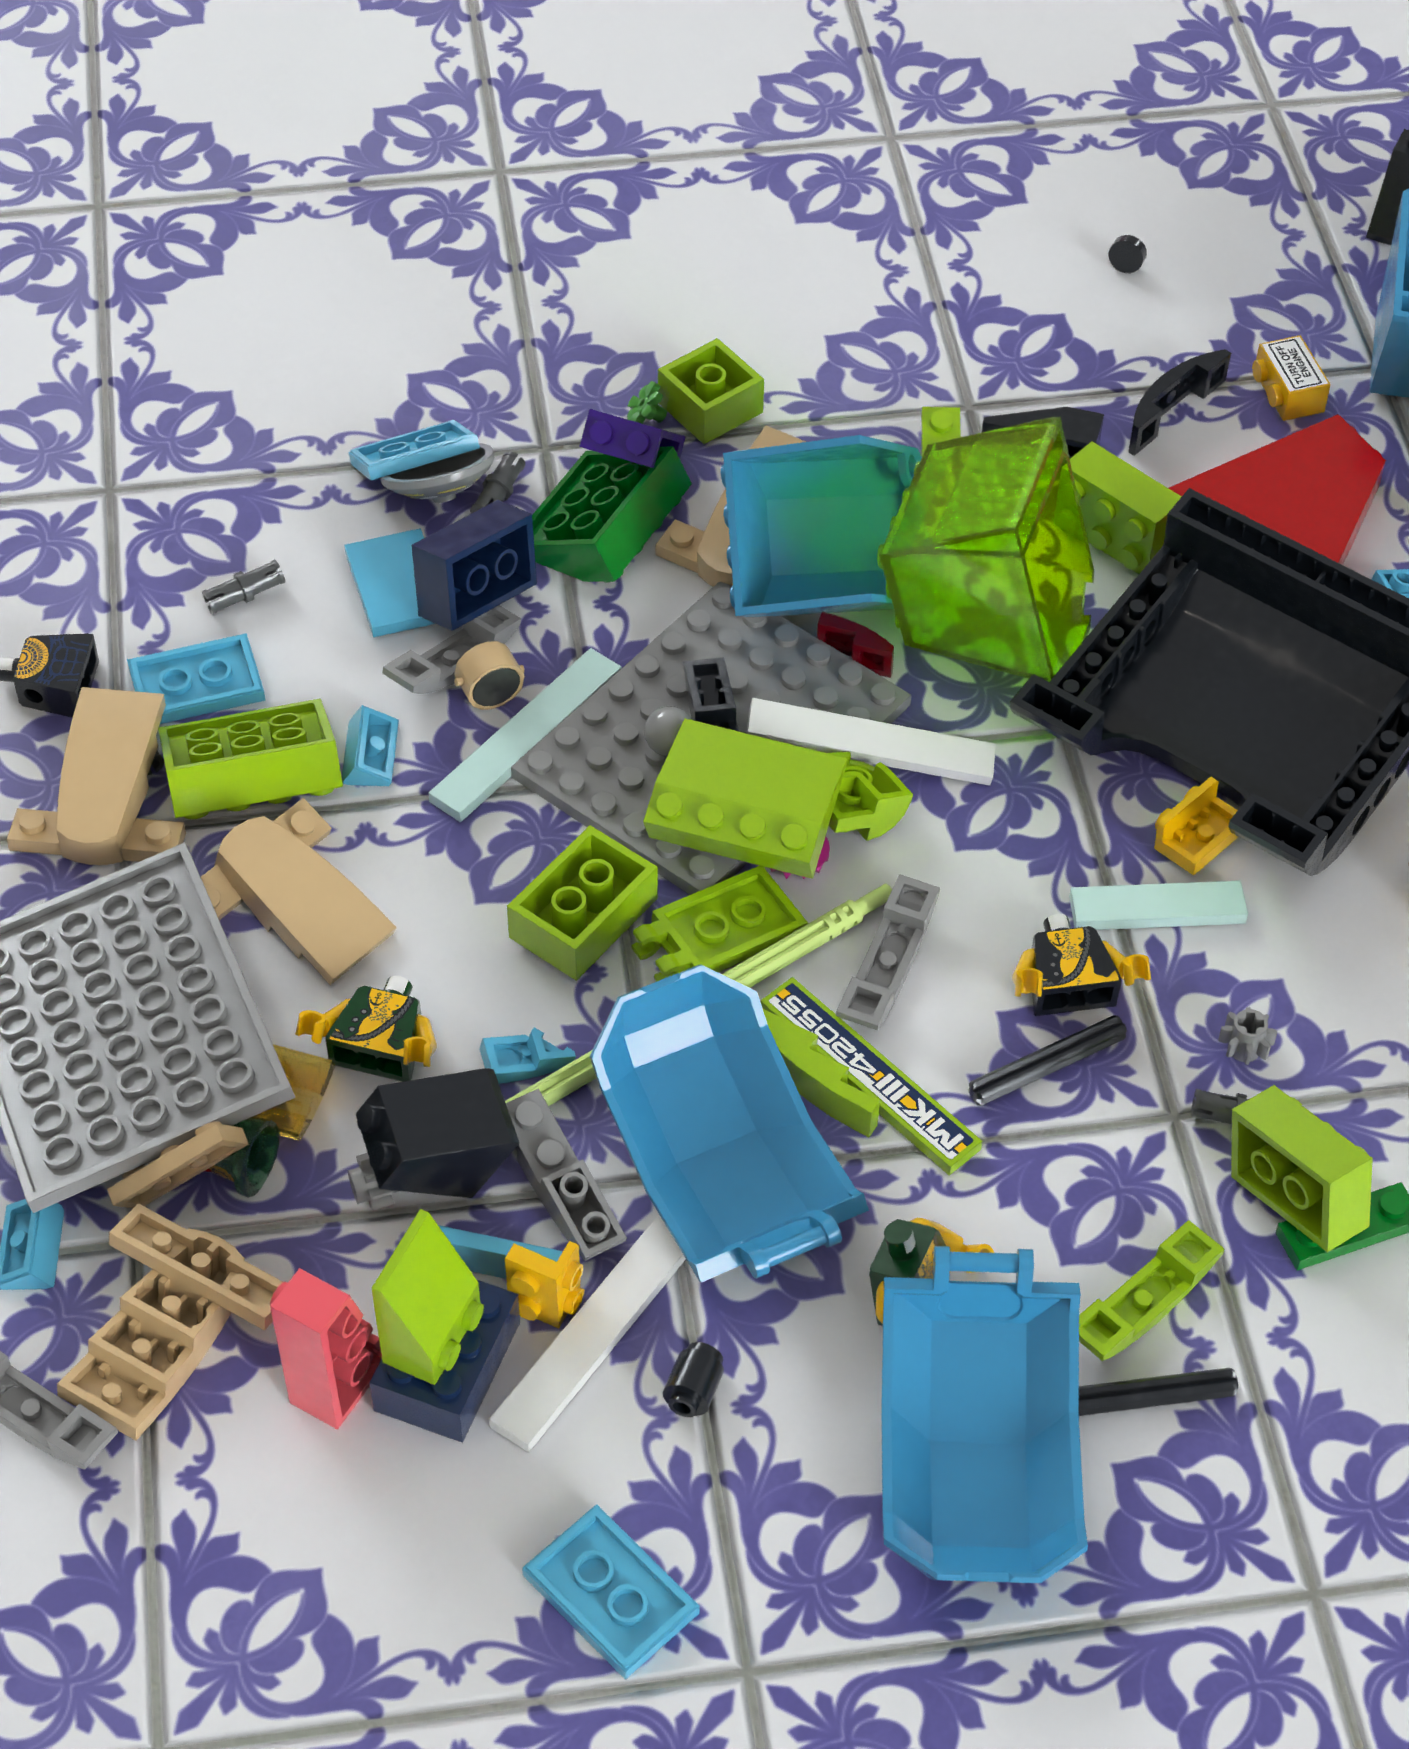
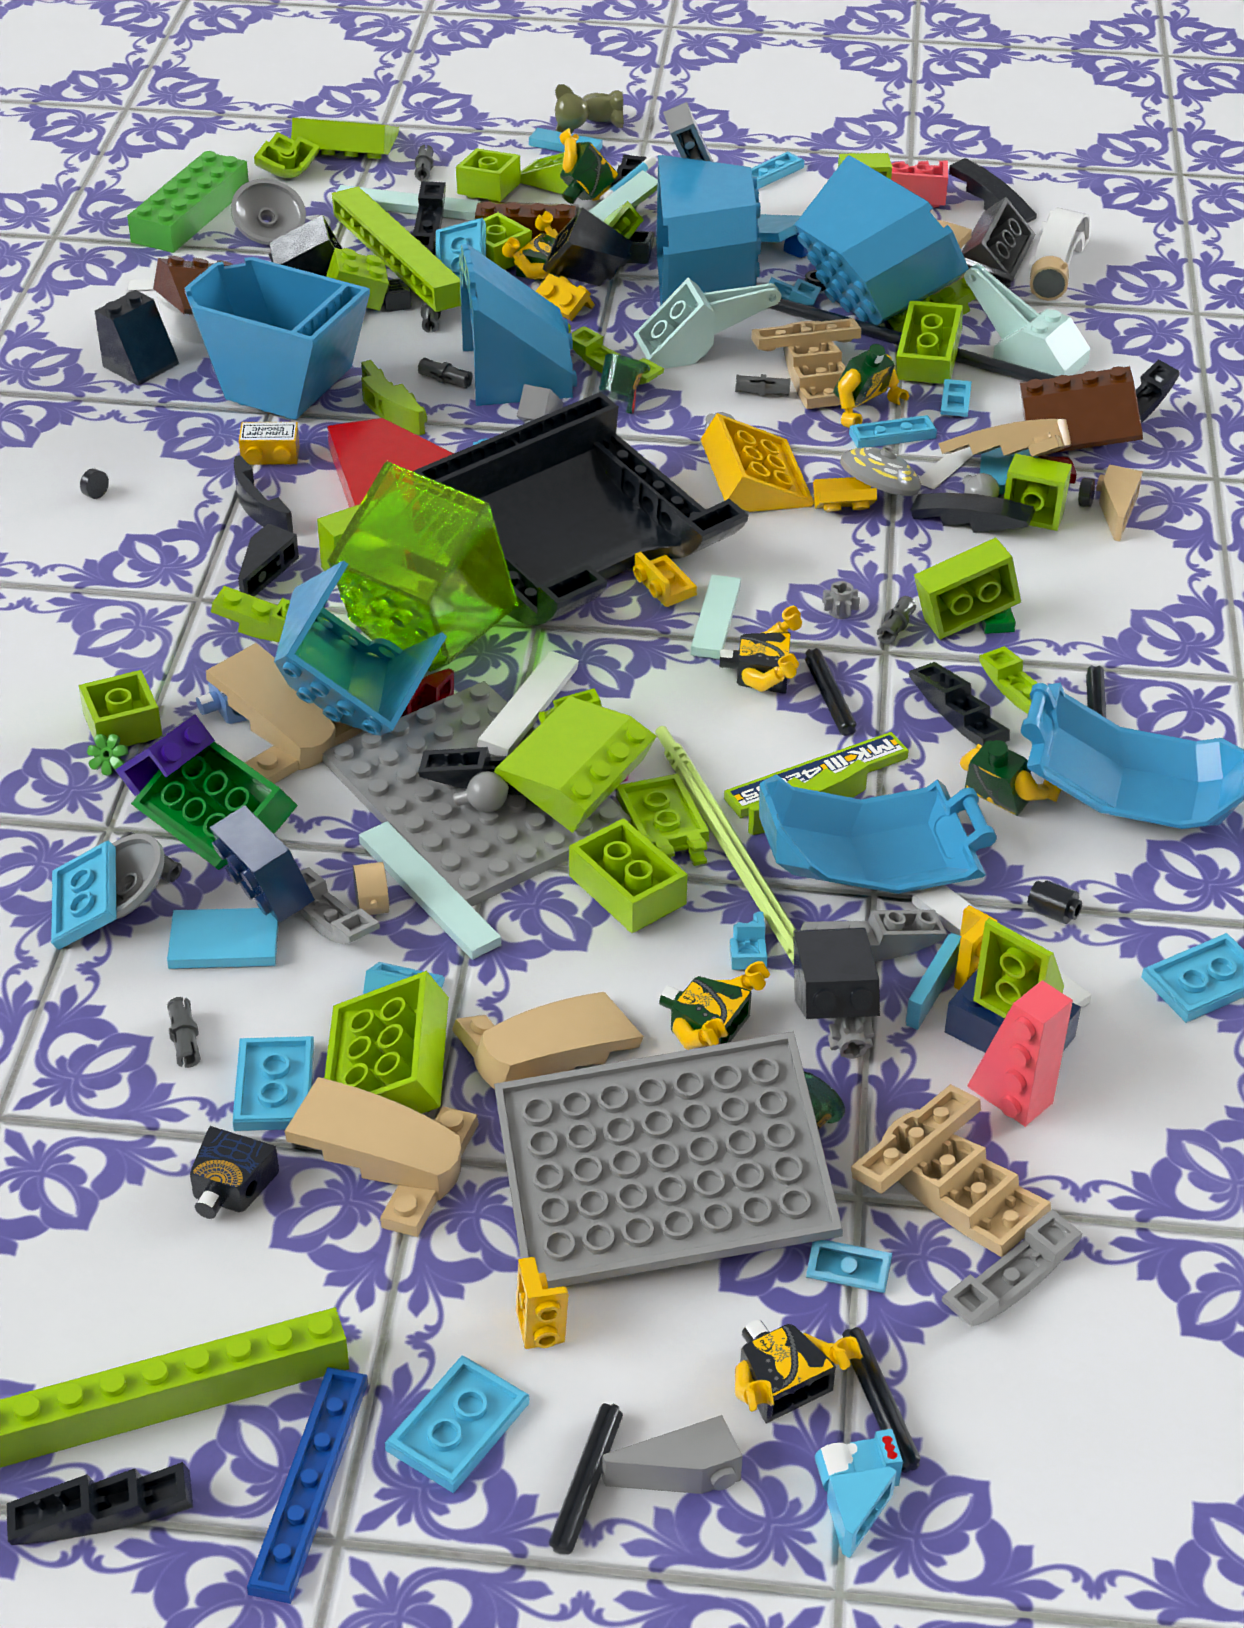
camera: 75 degrees left, 10 degrees down
(177, 1165) = (826, 1104): tan plate -> none
(890, 953) = (719, 744): light grey slope -> none
(1081, 1209) = (954, 701): none -> black slope

